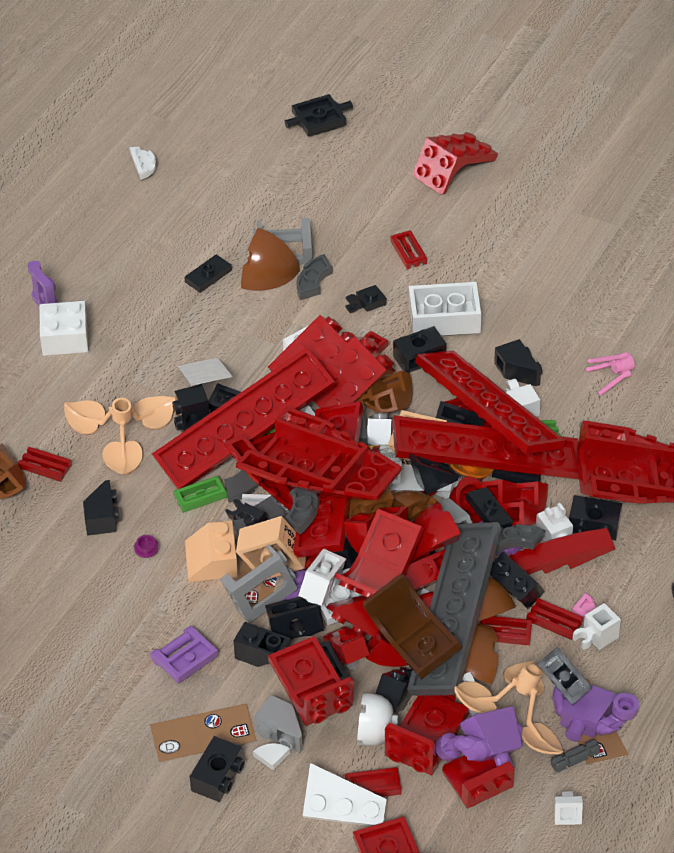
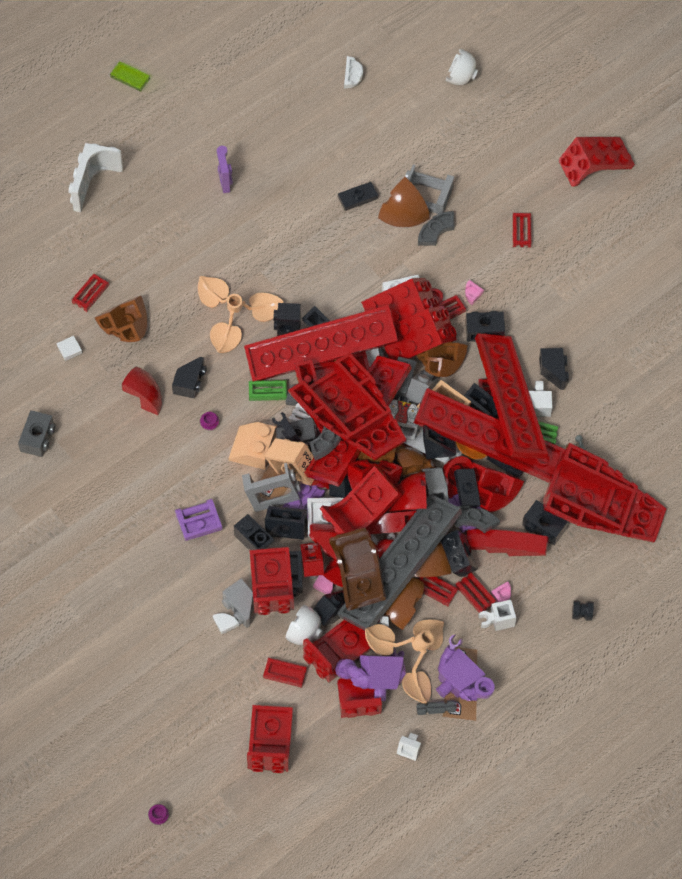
camera: 20 degrees right, 15 degrees up
(46, 461) = (156, 312): red tile -> none
(47, 531) = (143, 385): none -> red brick
(63, 328) = (227, 208): white brick -> none
(193, 733) = (186, 585): medium nougat sticker -> none
(204, 371) = (312, 289): white sticker -> none
(218, 755) = (187, 610): black brick -> none
(264, 121) = (462, 68): none -> white cylinder
(318, 114) = (509, 76): black plate -> none
(319, 577) = (309, 504): white brick -> none
(341, 801) = (255, 678): white wing -> none
(367, 298) = (469, 264): black plate -> none
(370, 671) = (323, 585): none -> bright pink tile
(386, 323) = (473, 292): none -> bright pink tile
(448, 307) = (520, 298): white brick -> none
(554, 522) = (511, 517): white brick -> none
(564, 676) = (448, 650): brick -> none
(620, 363) = (632, 396): bright pink plant -> none

